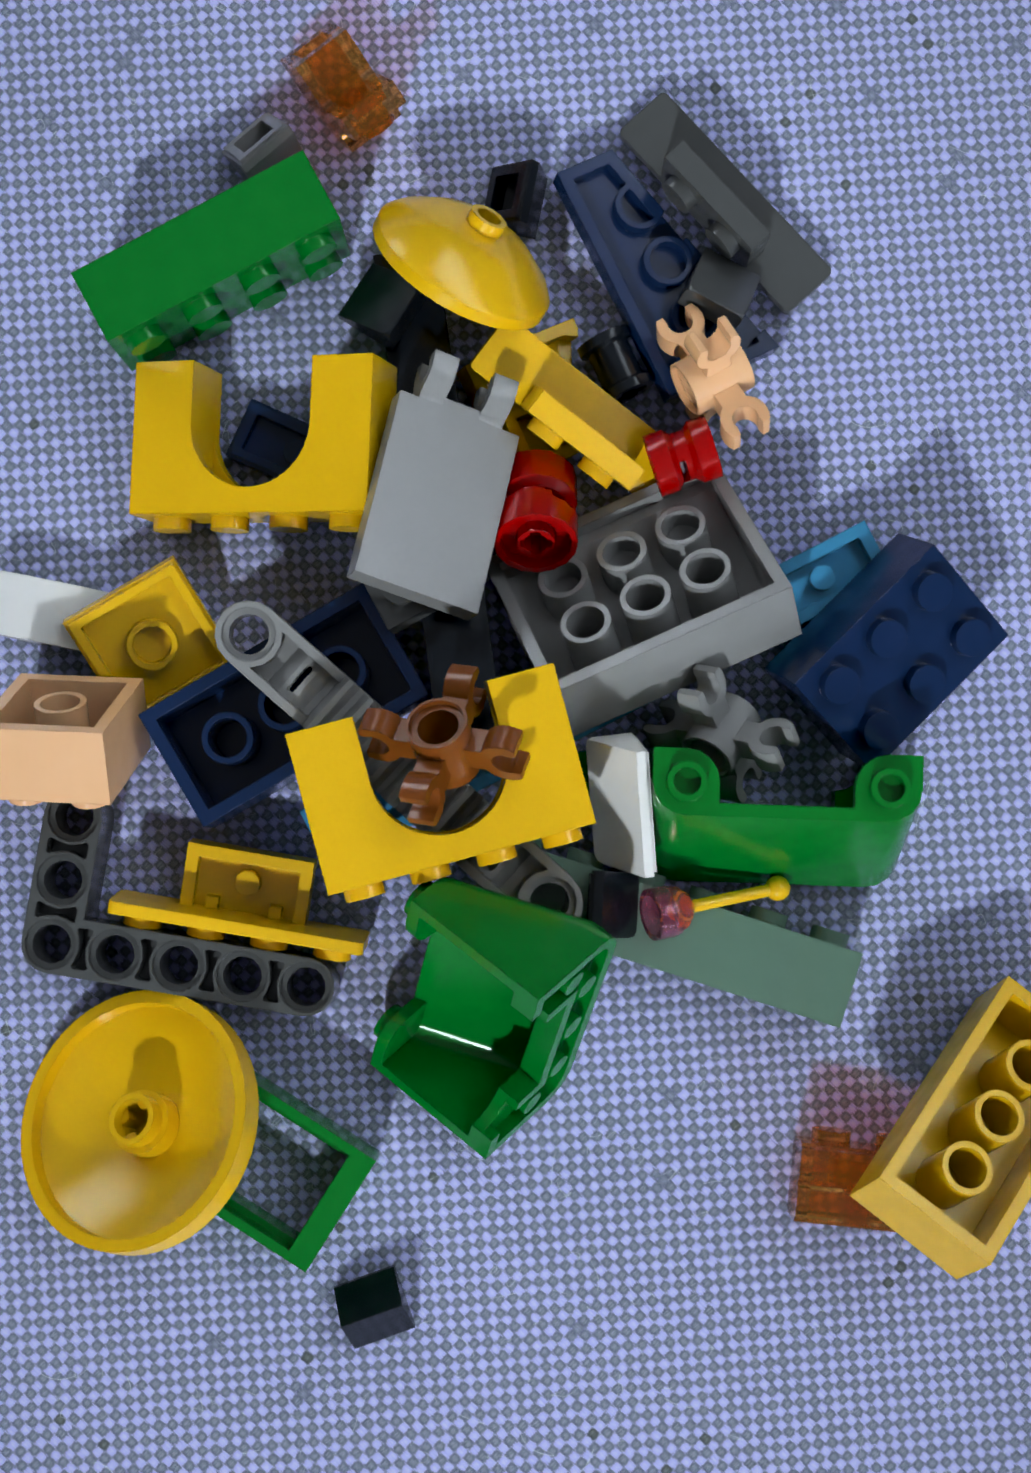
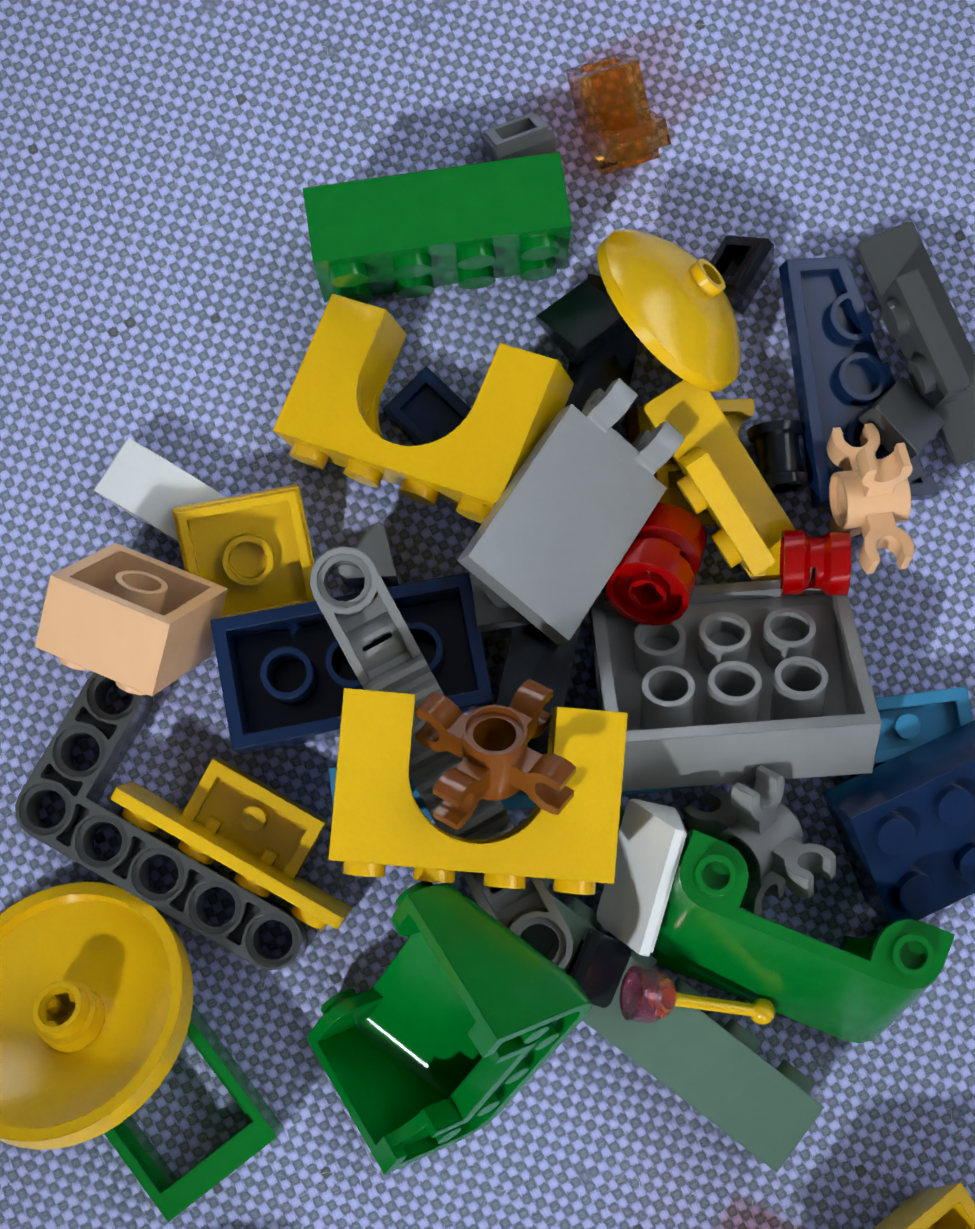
camera: 15 degrees right, 5 degrees down
(270, 592) = (377, 548): none -> light grey slope

